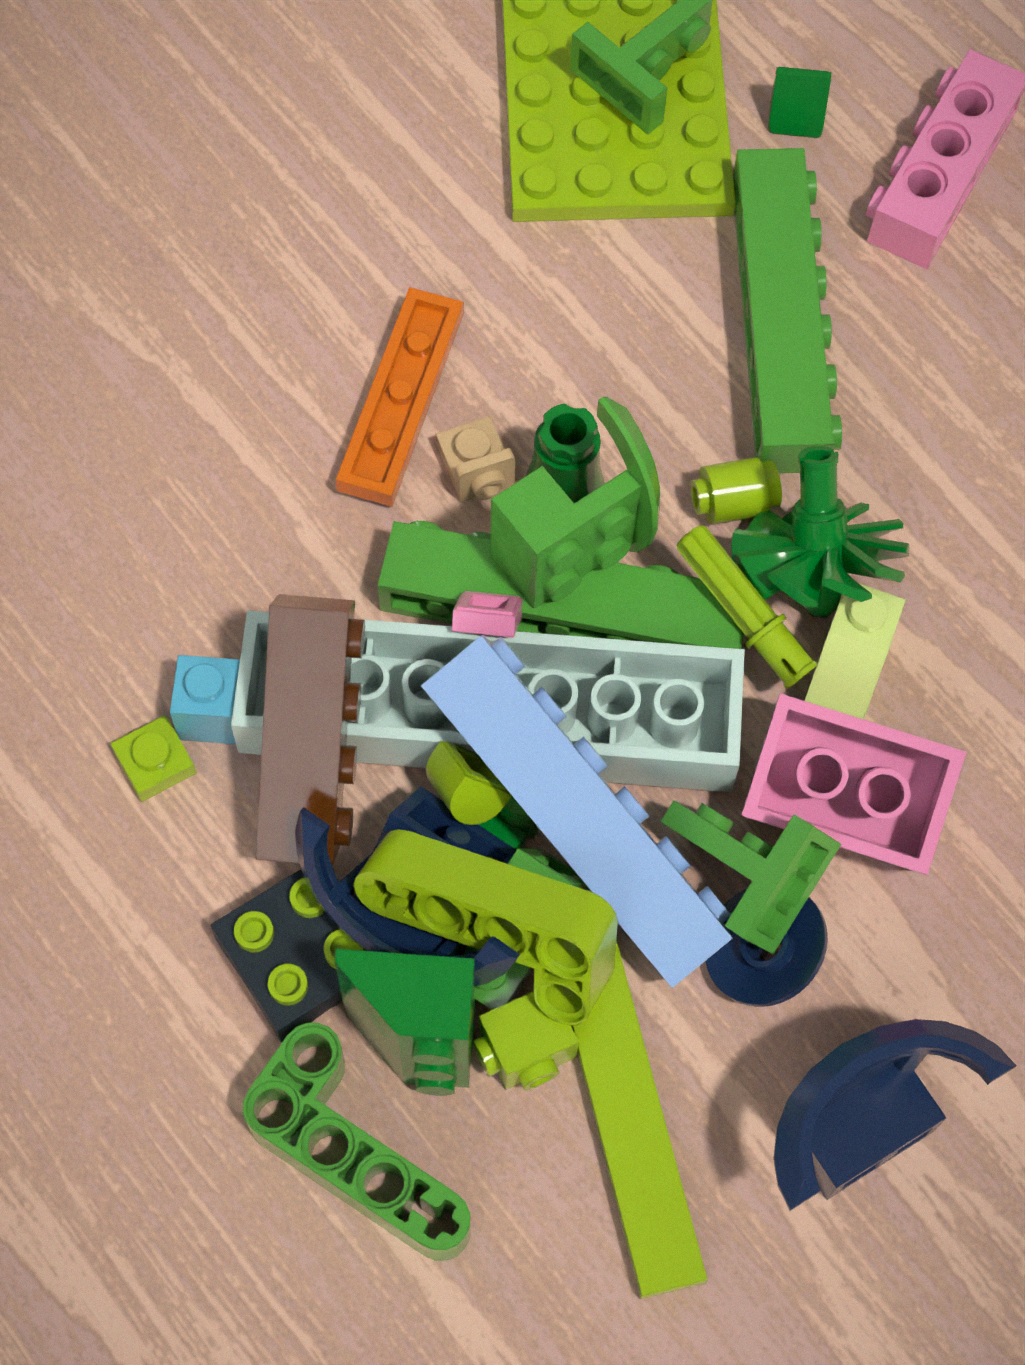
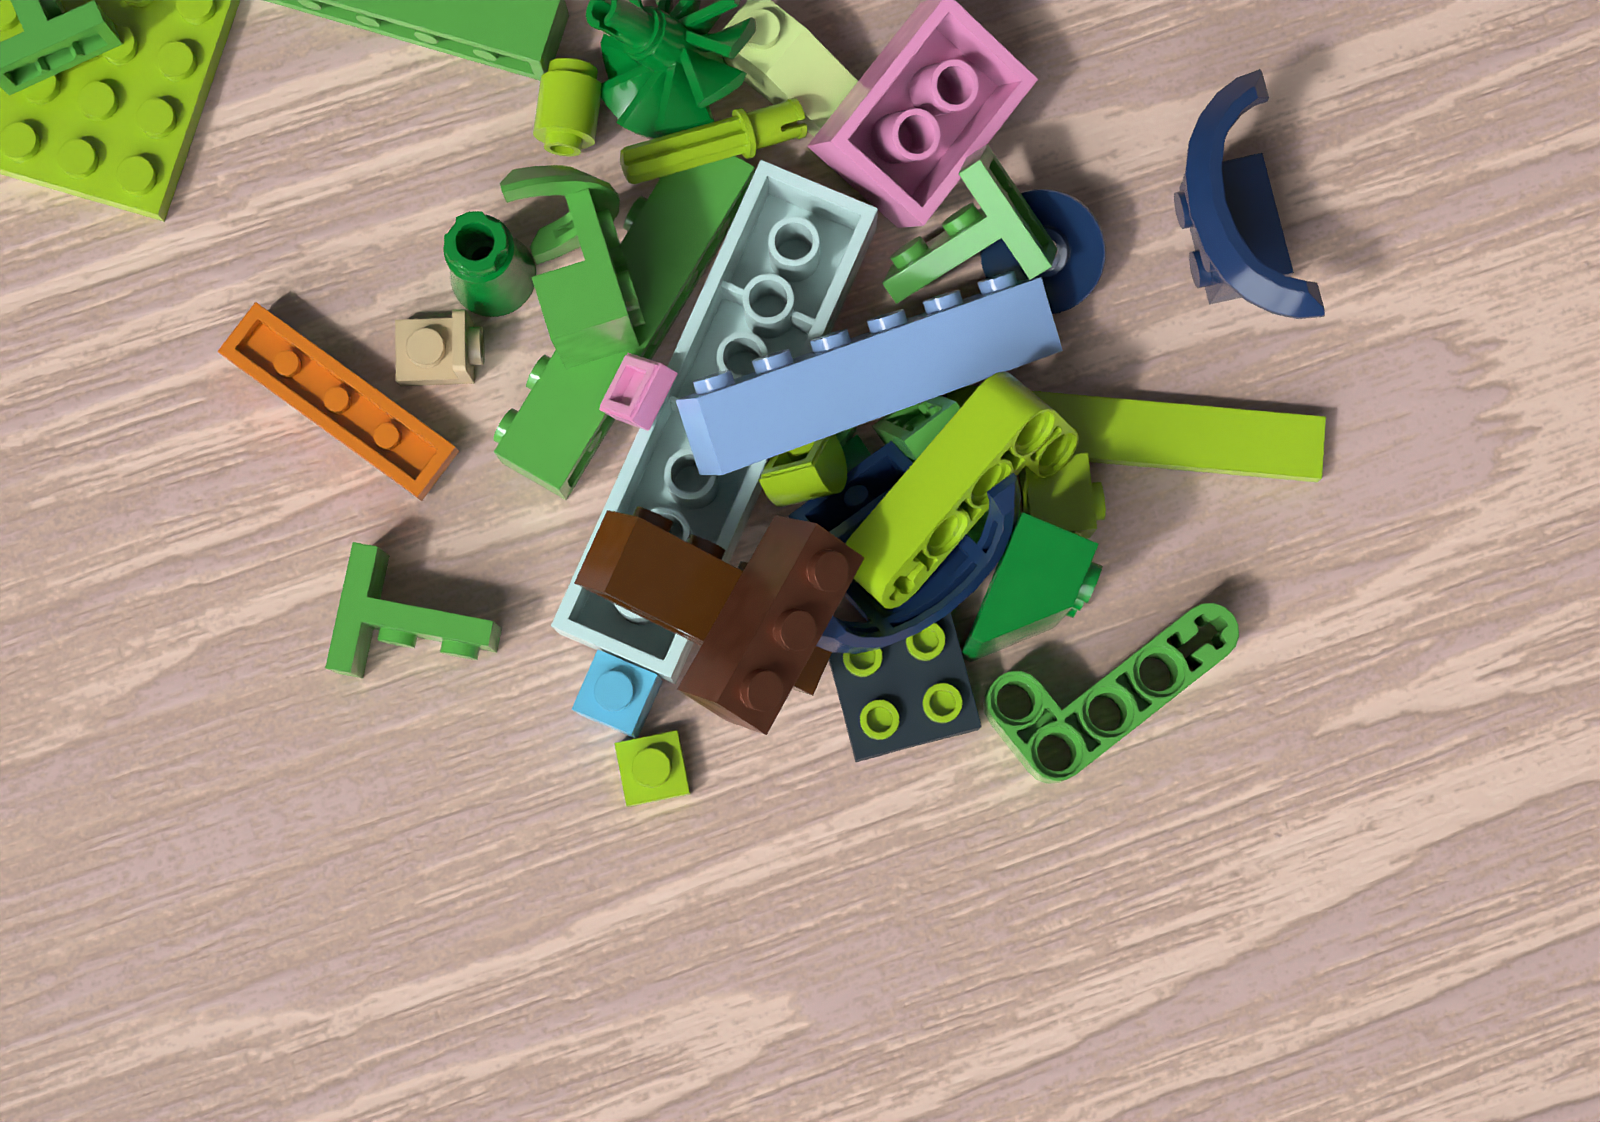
camera: 65 degrees left, 15 degrees up
(213, 475) = (398, 623): none -> bright green bracket
(294, 774) = (771, 623): none -> copper brick

